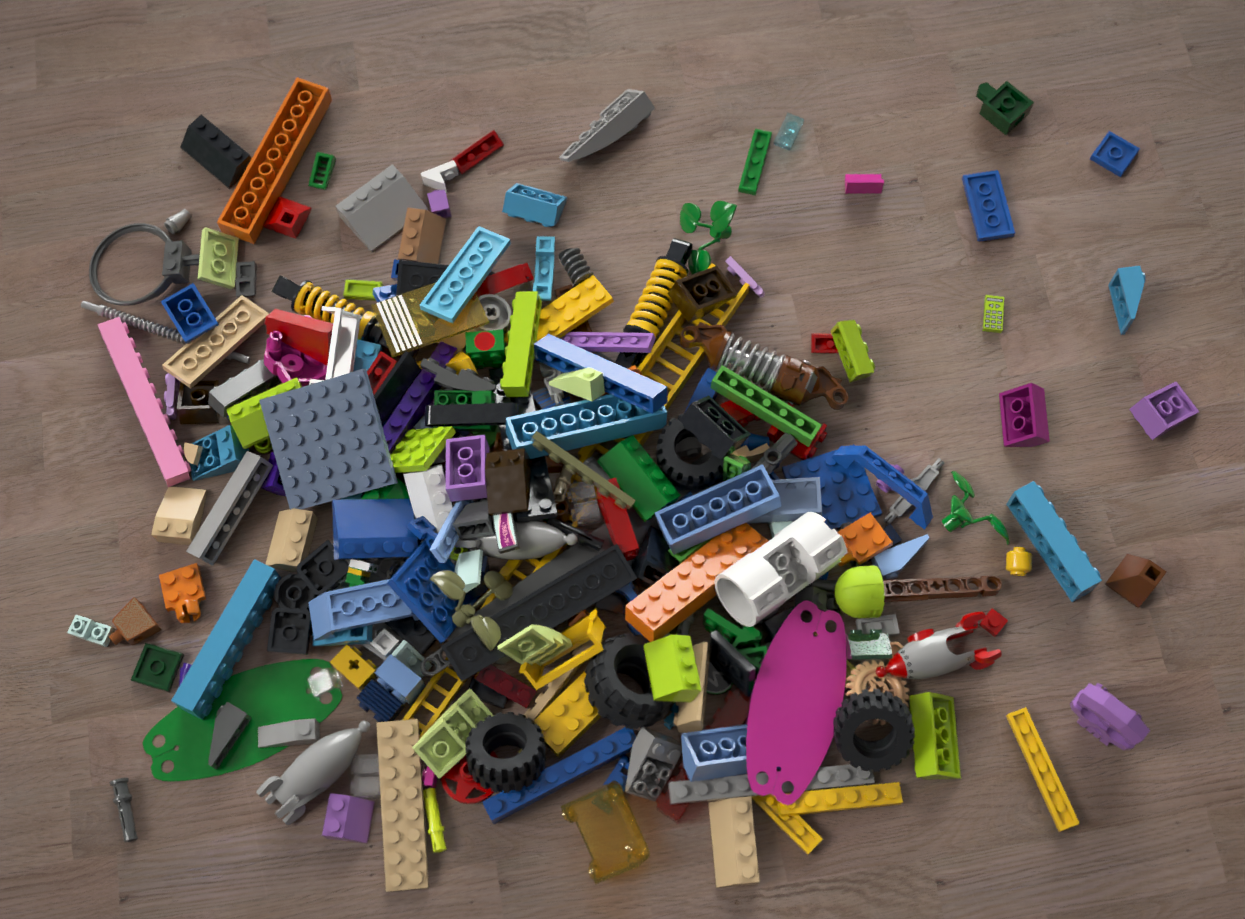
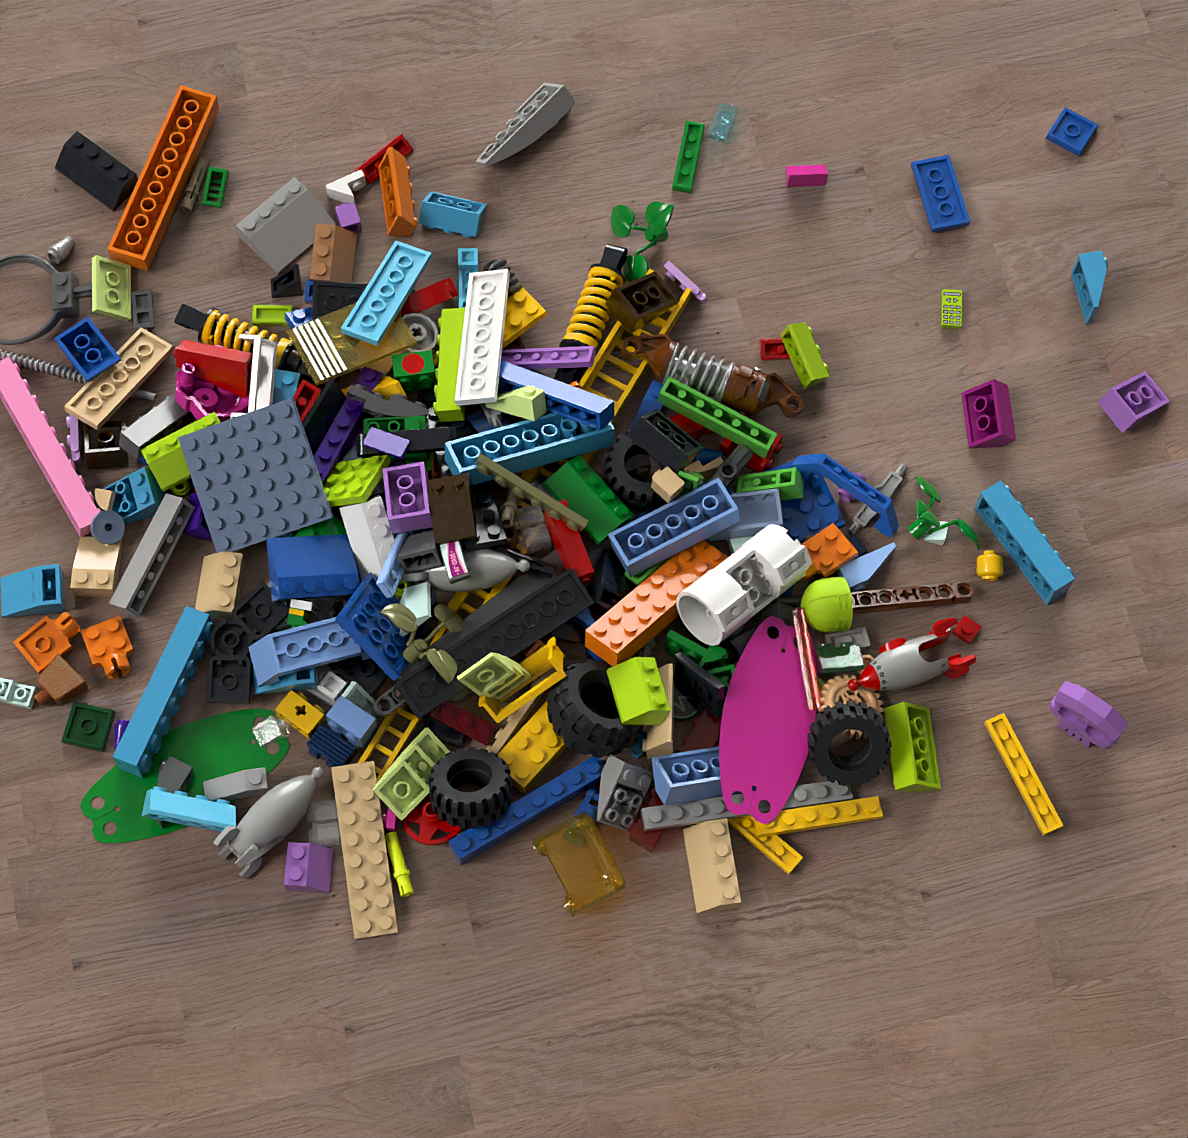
camera: 10 degrees left, 0 degrees up
(119, 536) = (33, 591): none -> dark azure slope
(122, 800) = (67, 865): dark grey pin -> none
(127, 582) = (47, 640): none -> orange plate
(183, 483) = (98, 524): none -> sand blue piece
(238, 756) = (187, 810): none -> medium azure slope
(287, 217) = (182, 240): red slope -> none
(295, 184) = (194, 185): none -> dark tan pin
(379, 261) = (287, 283): none -> black slope
(423, 529) = (365, 565): blue plate -> none
(451, 415) = (386, 443): none -> slope
(484, 184) = (397, 194): none -> orange slope
(550, 320) = (482, 337): none -> white plate
(713, 468) = (667, 484): none -> tan brick
(829, 470) = (787, 480): none -> bright green slope
(837, 643) = (806, 658): none -> clear red axle
(969, 530) = (937, 537): none -> light aqua slope
(1003, 106) = (952, 85): dark green brick -> none
(1135, 579) = (1110, 576): reddish brown slope -> none

